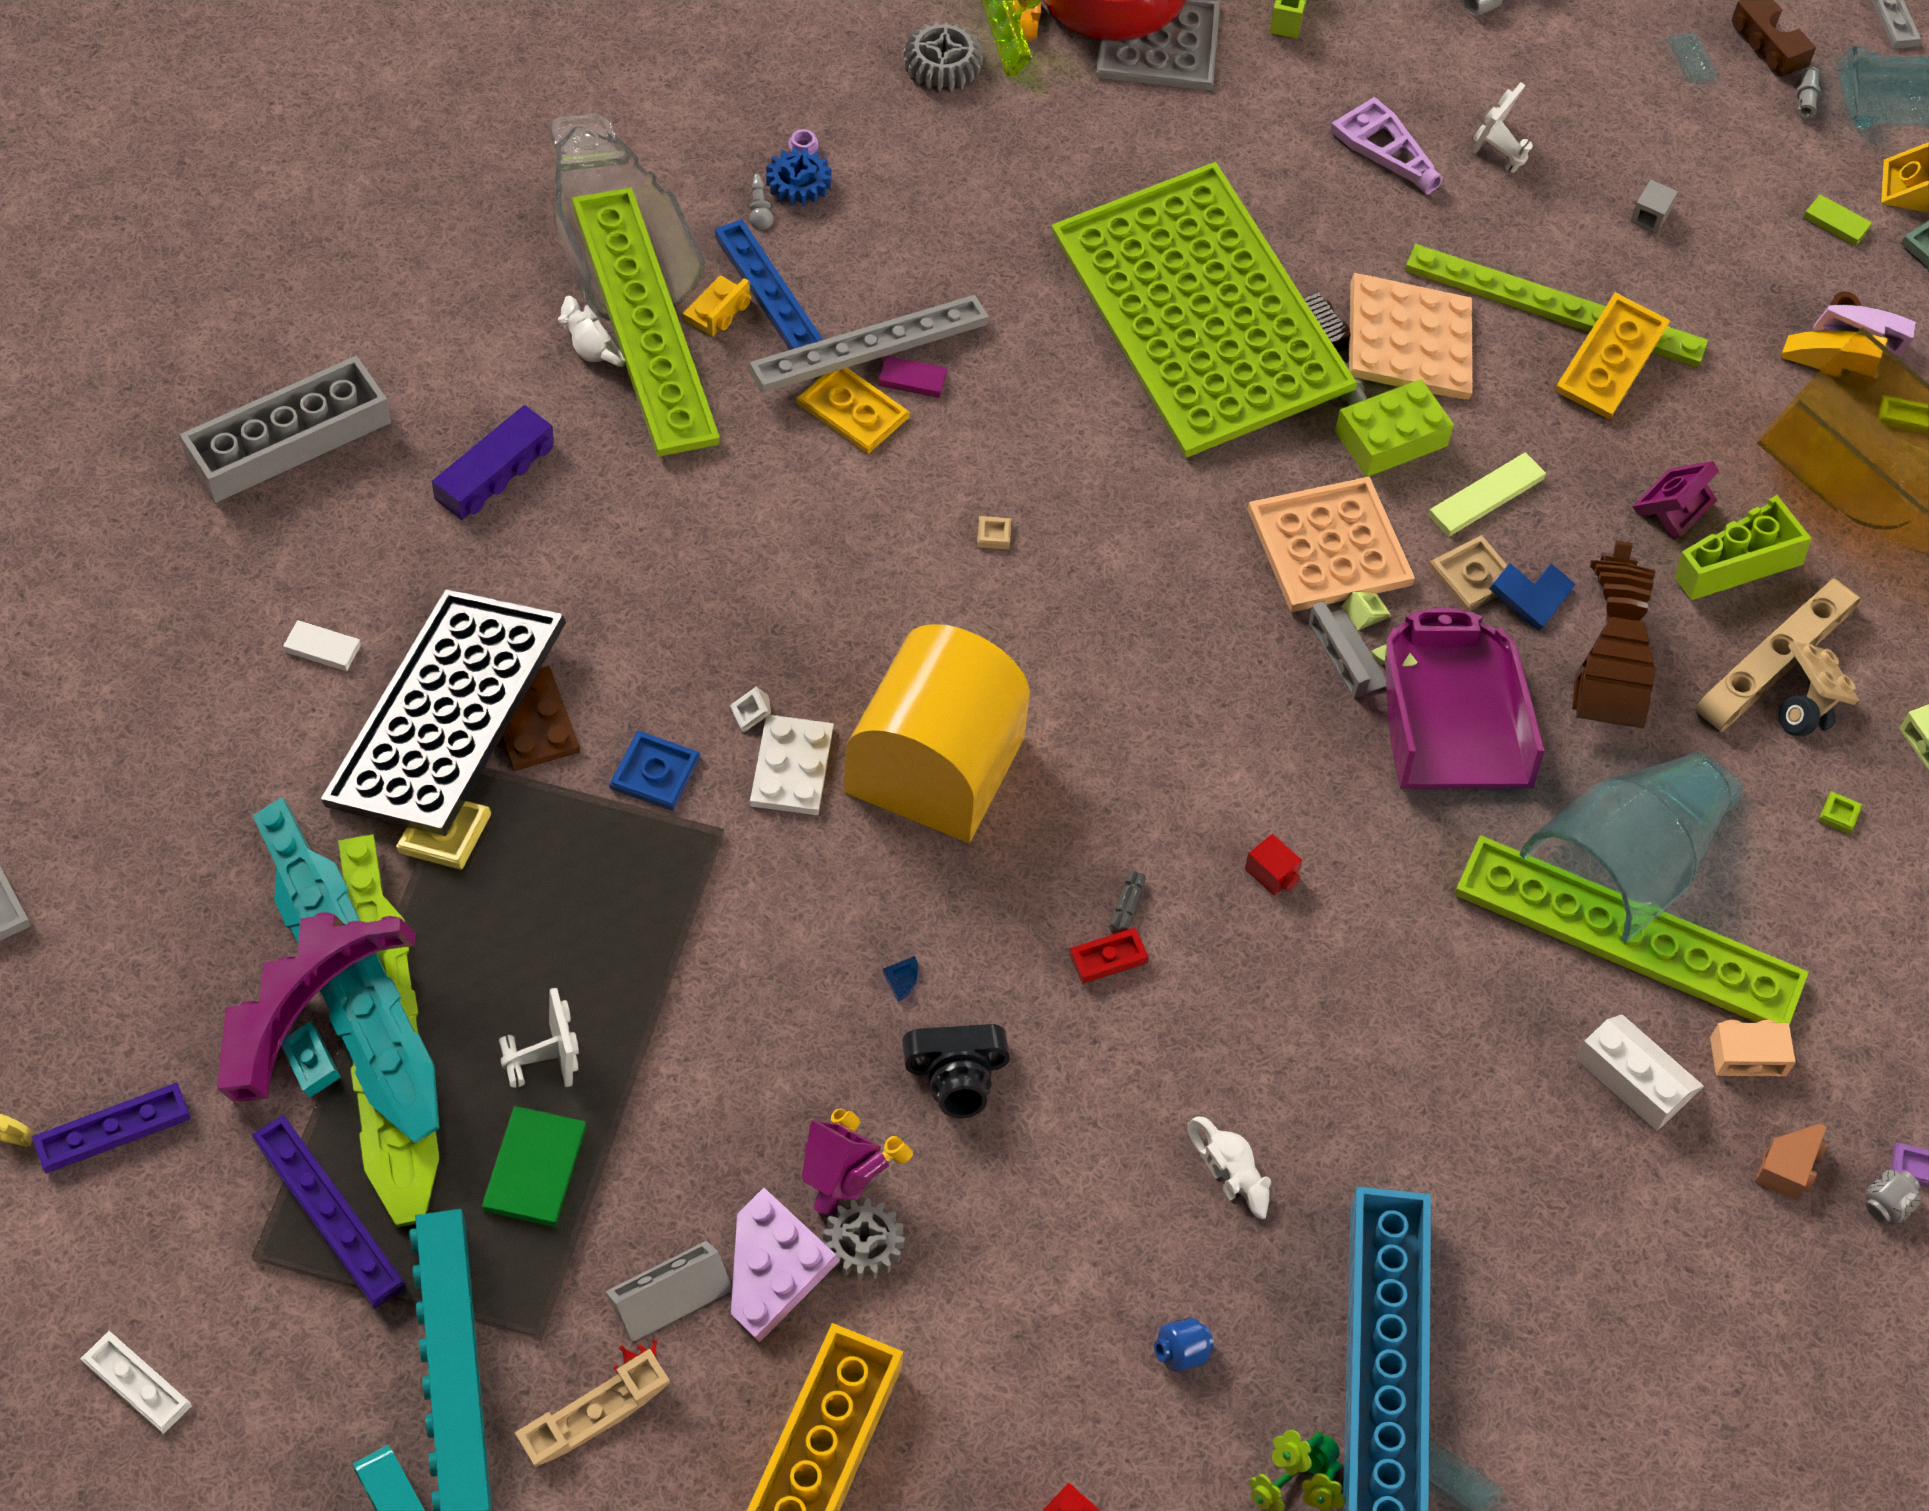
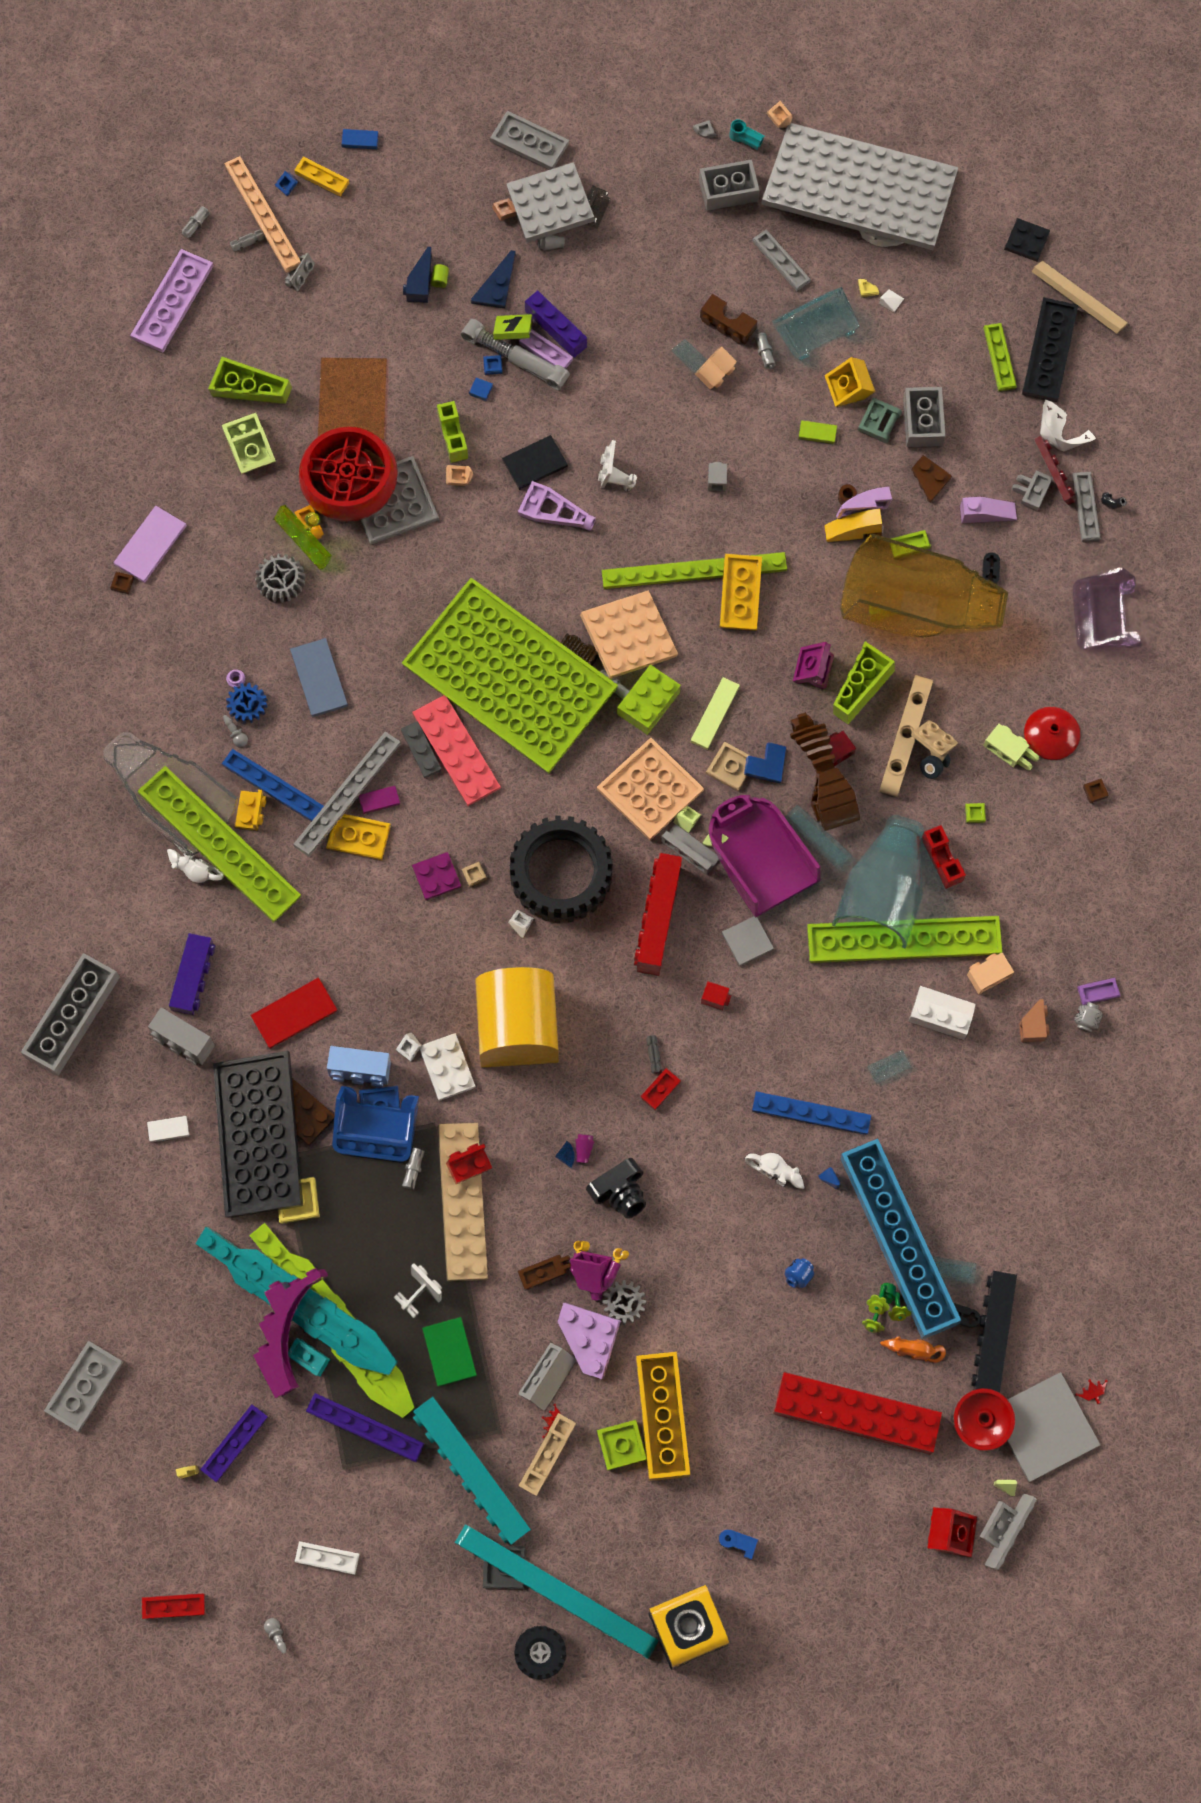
camera: 25 degrees left, 15 degrees up
(421, 527) = (181, 1037): none -> light grey brick
(609, 584) = (294, 1013): none -> red tile
(621, 788) = (373, 1129): none -> blue windscreen
(648, 872) = (413, 1168): none -> light grey pin
(657, 689) = (358, 1066): none -> light blue brick
(694, 962) = (462, 1208): none -> tan plate
(725, 1461) = (621, 1445): none -> lime plate
(738, 902) = (469, 1163): none -> red bracket
(760, 1127) = (544, 1271): none -> reddish brown hinge
(921, 195) = (318, 677): none -> sand blue tile
(935, 509) = (436, 876): none -> magenta plate
(936, 978) = (584, 1146): none -> magenta cone
(1013, 344) = (421, 749): none -> dark grey plate
(1022, 630) = (519, 924): none -> white slope
(1065, 368) = (456, 750): none -> coral plate
(1137, 523) = (561, 830): none -> black tyre
(1246, 706) = (659, 912): none -> red brick
(1272, 48) = (458, 475): none -> light nougat plate
(1316, 1224) = (830, 1178): none -> blue slope
(1339, 1113) = (811, 1113): none -> blue plate
(1369, 816) = (747, 940): none -> light grey tile
(1392, 81) = (534, 462): none -> black tile
(1507, 1108) = (889, 1067): none -> clear light blue tile
(1563, 729) = (817, 837): none -> clear light blue tile
(1665, 621) = (842, 747): none -> dark red slope
(1723, 79) = (715, 368): none -> light nougat brick
(1756, 862) = (937, 846): none -> red arch

